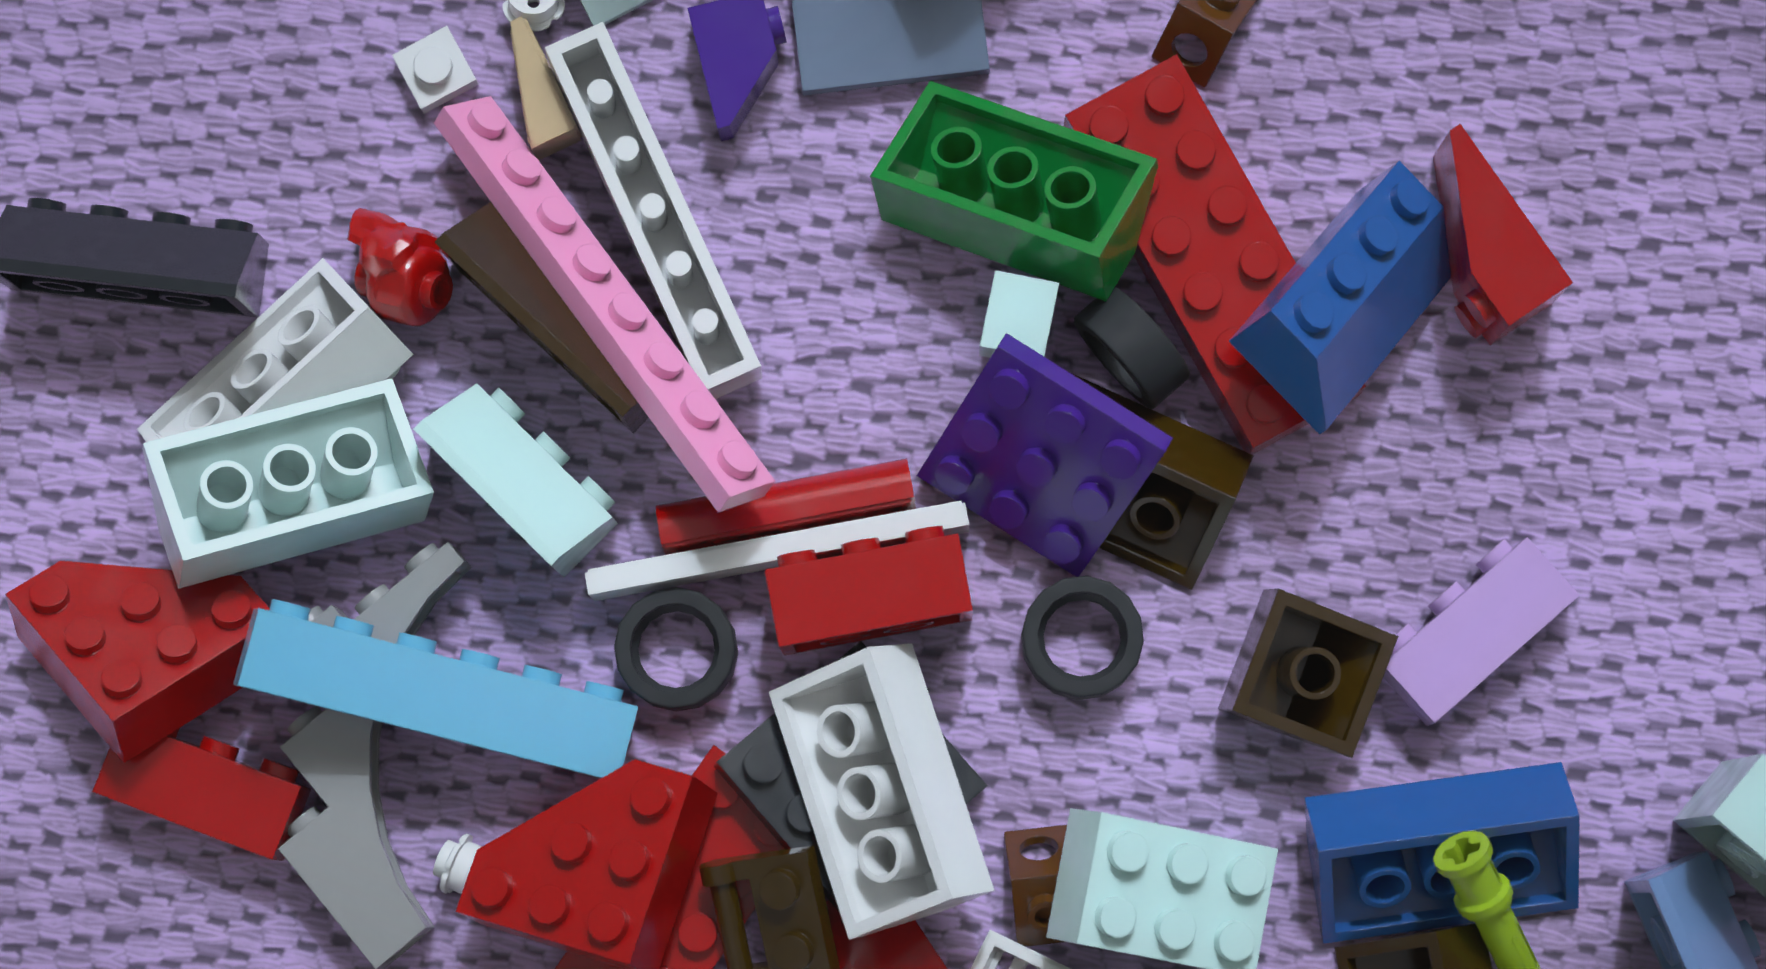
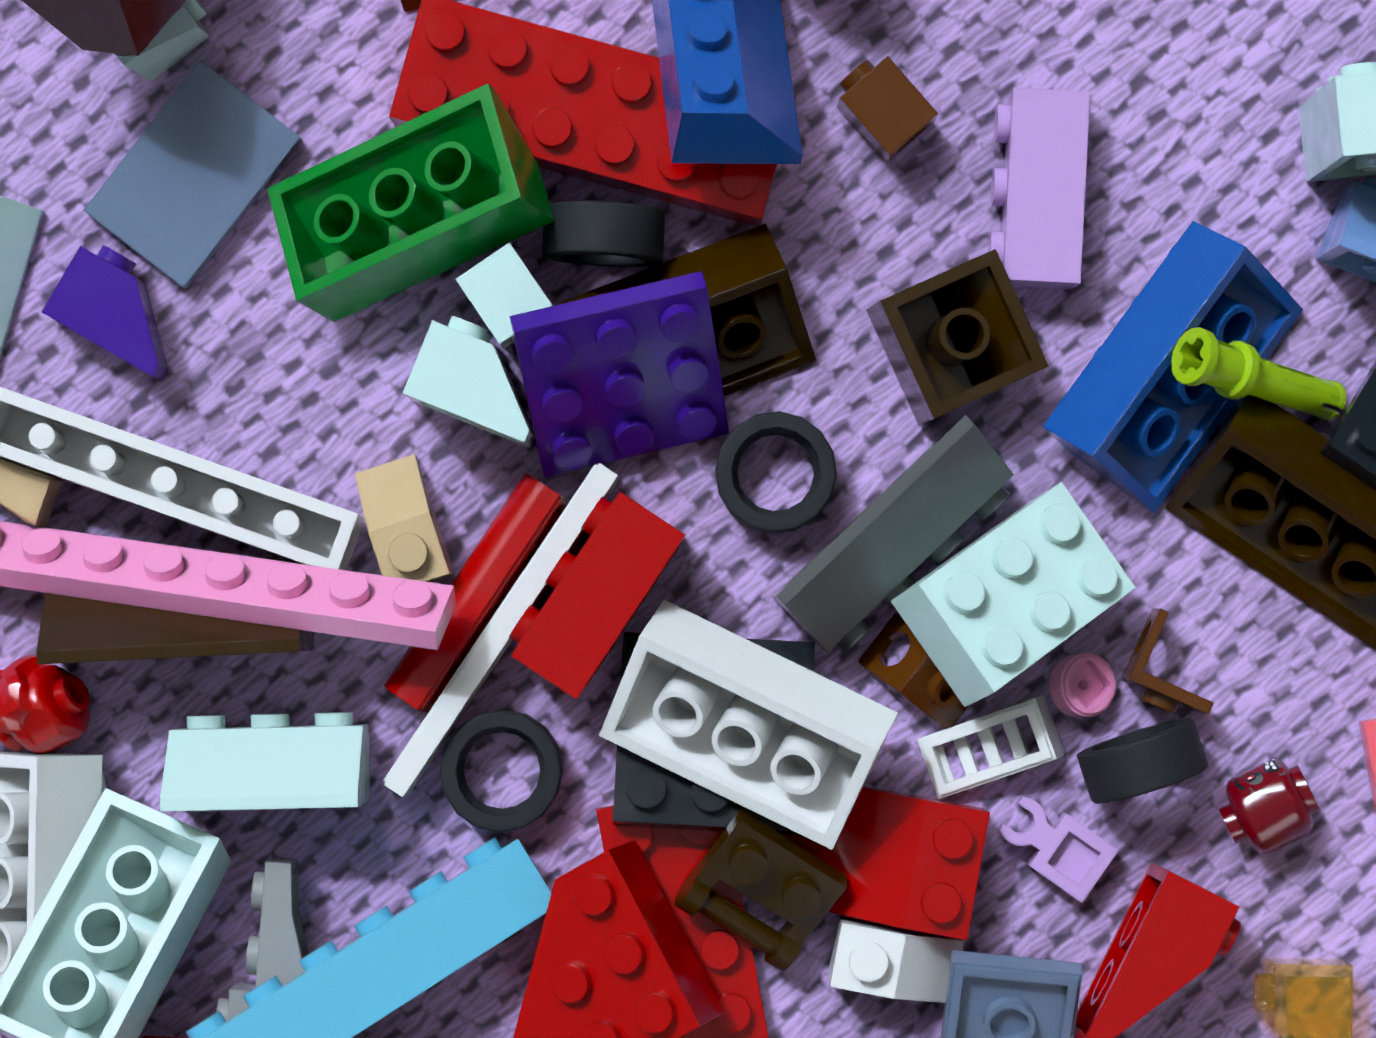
camera: 50 degrees left, 5 degrees up
(786, 406) = (403, 522): none -> tan slope
(932, 352) = (468, 381): none -> light aqua slope
(1121, 767) = (895, 535): none -> dark grey slope
(1421, 461) = (885, 107): none -> reddish brown brick

